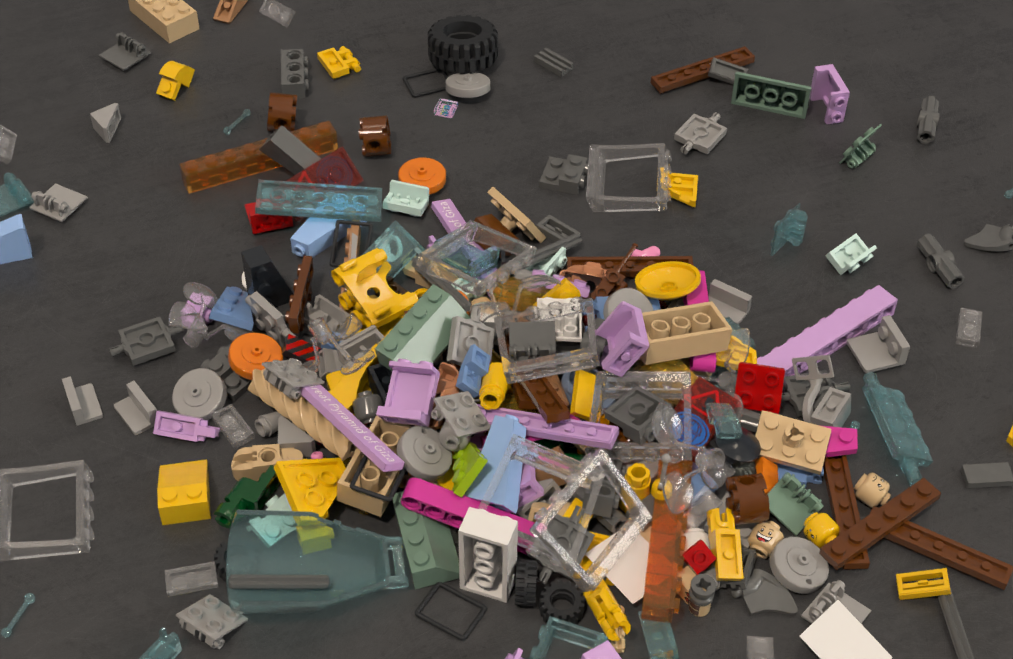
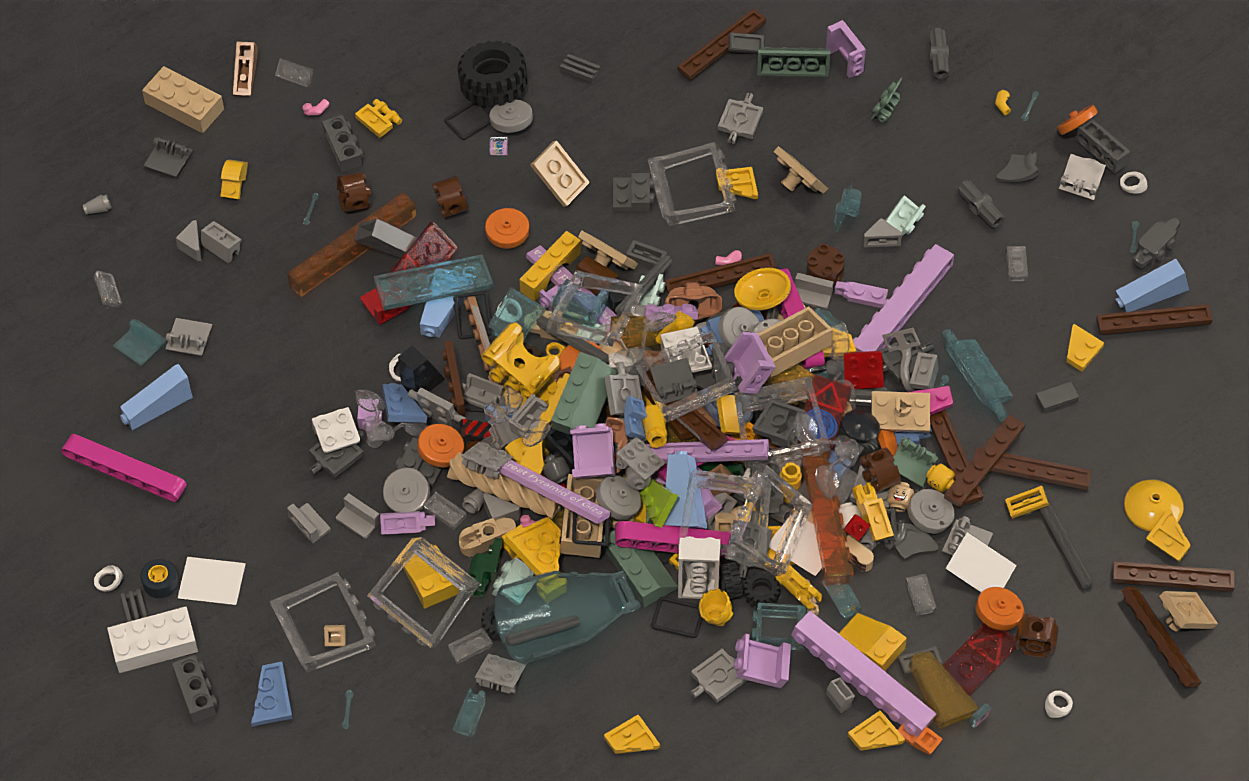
camera: 15 degrees left, 10 degrees up
(37, 76) = (97, 205): none -> light grey cone
(45, 526) = (335, 635): none -> tan brick
(133, 127) = (220, 241): none -> light grey hinge
(151, 316) = (335, 430): none -> white bracket
(197, 484) = (443, 565): none -> clear windscreen
(283, 45) = (310, 110): none -> bright pink arm
(407, 198) = (503, 255): light aqua bracket -> none
(438, 220) = (563, 251): none -> yellow arch
(493, 137) = (559, 173): none -> tan plate
(497, 609) = (715, 607): none -> yellow hair
(613, 278) = (713, 297): reddish brown piece -> none
(657, 484) = (811, 476): hinge -> none
(697, 594) = (862, 556): dark grey wheel -> none
(724, 420) = (846, 408): clear light blue slope -> none
(745, 189) = (798, 173): none -> tan plate
(750, 277) = (826, 263): none -> reddish brown brick
(781, 317) = (862, 293): none -> lavender hinge
(821, 266) = (882, 235): none -> light grey slope
(872, 490) = (972, 434): tan head -> none
(880, 349) = (949, 303): light grey bracket -> none
(985, 173) = (1000, 102): none -> yellow arm

